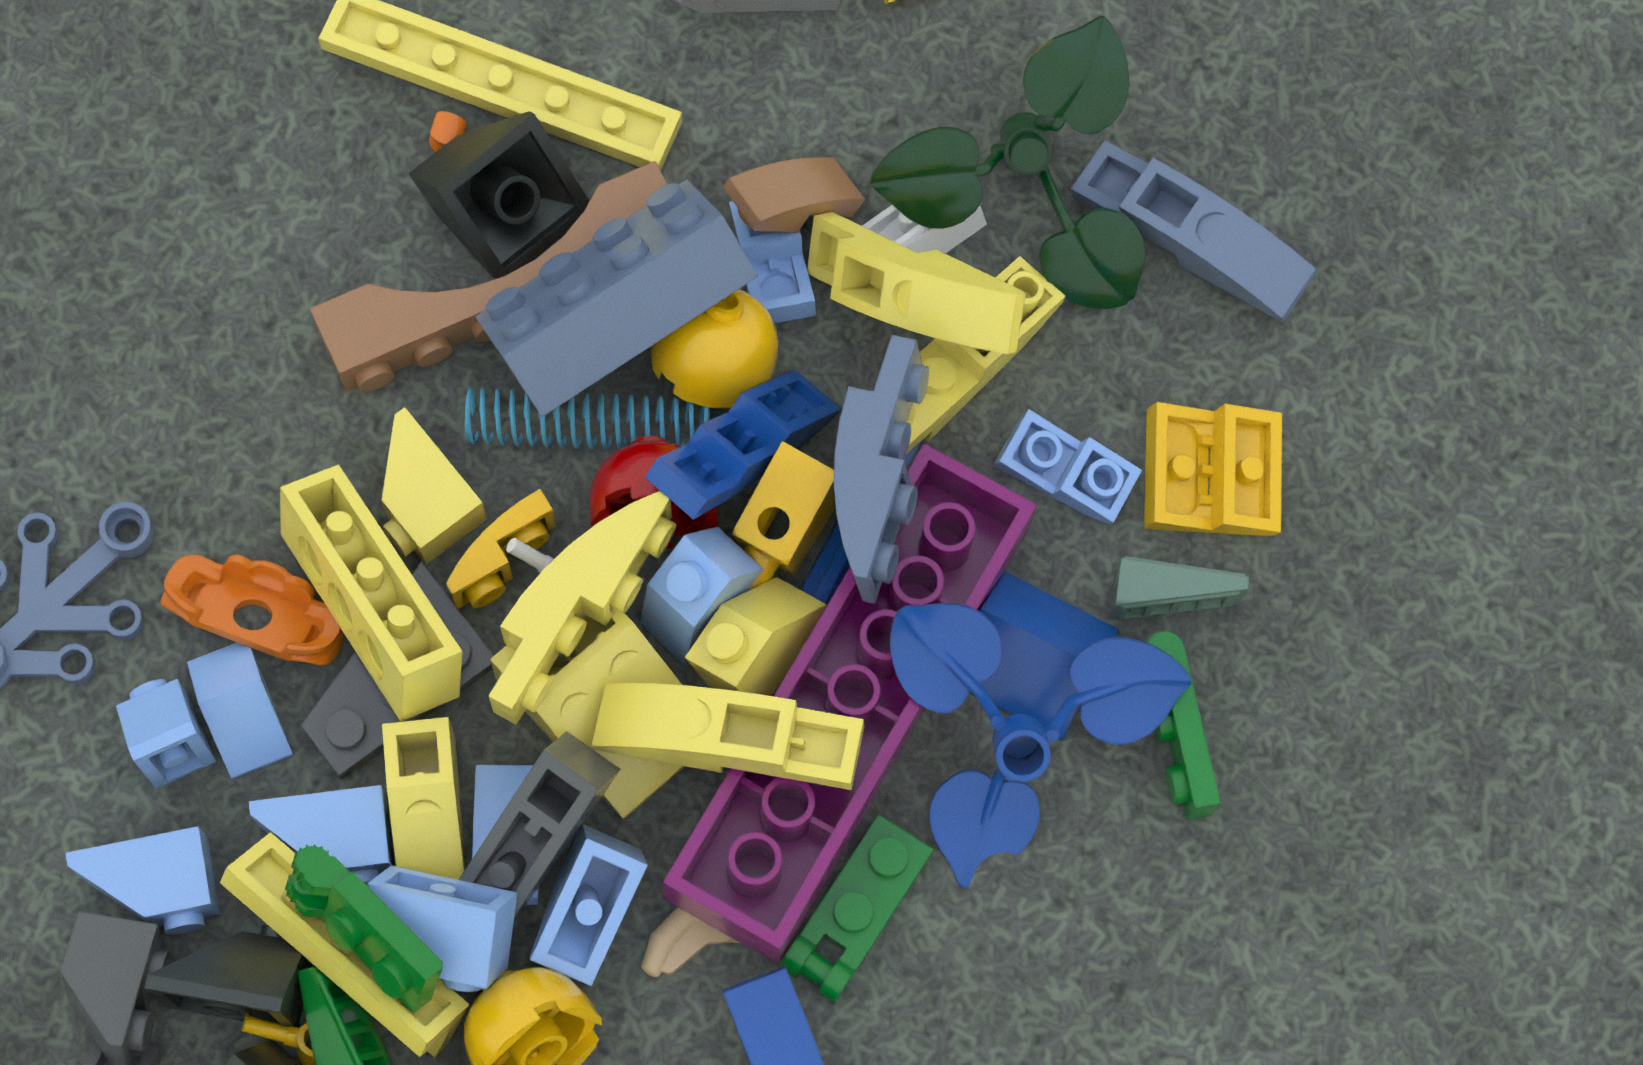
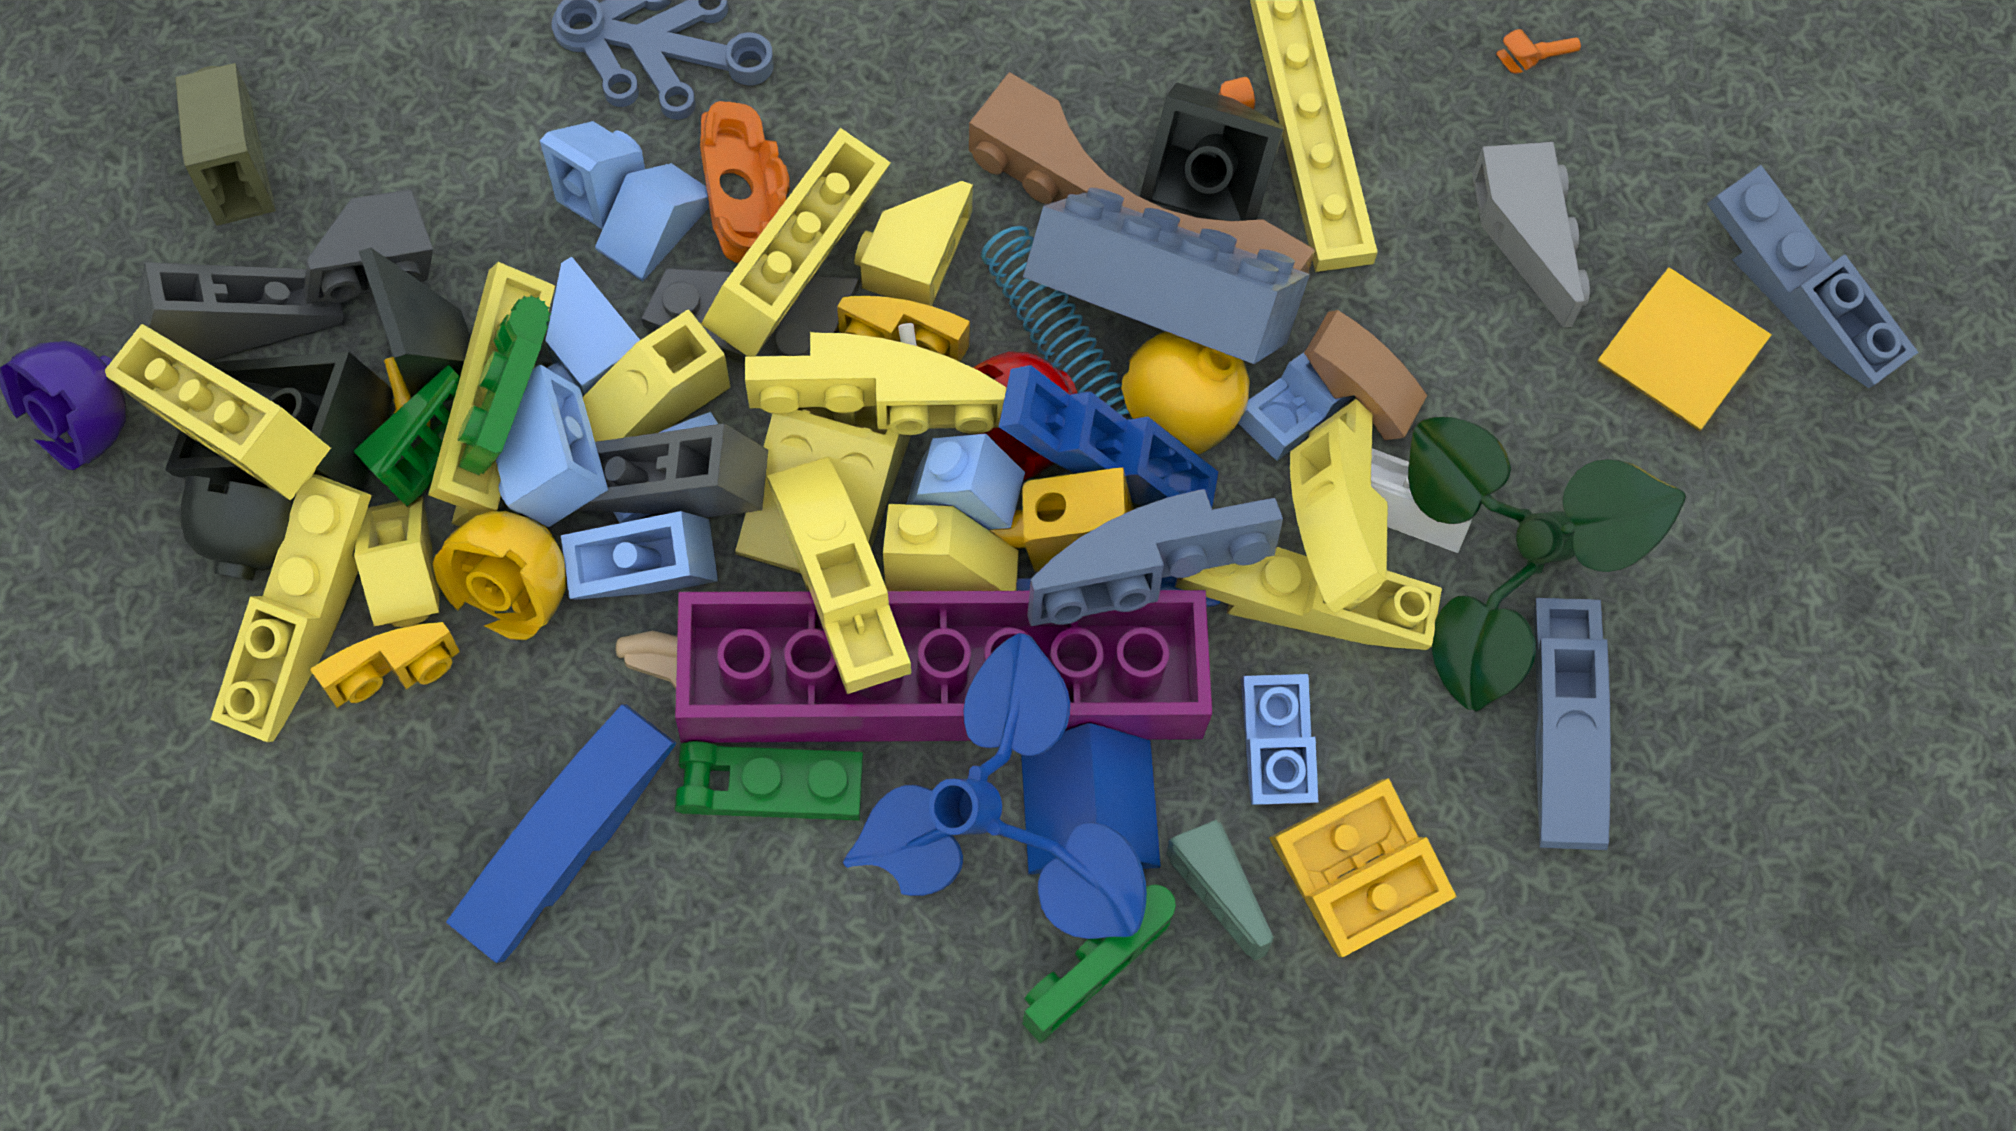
camera: 60 degrees right, 5 degrees down
(156, 877) = (475, 231): light blue slope -> none

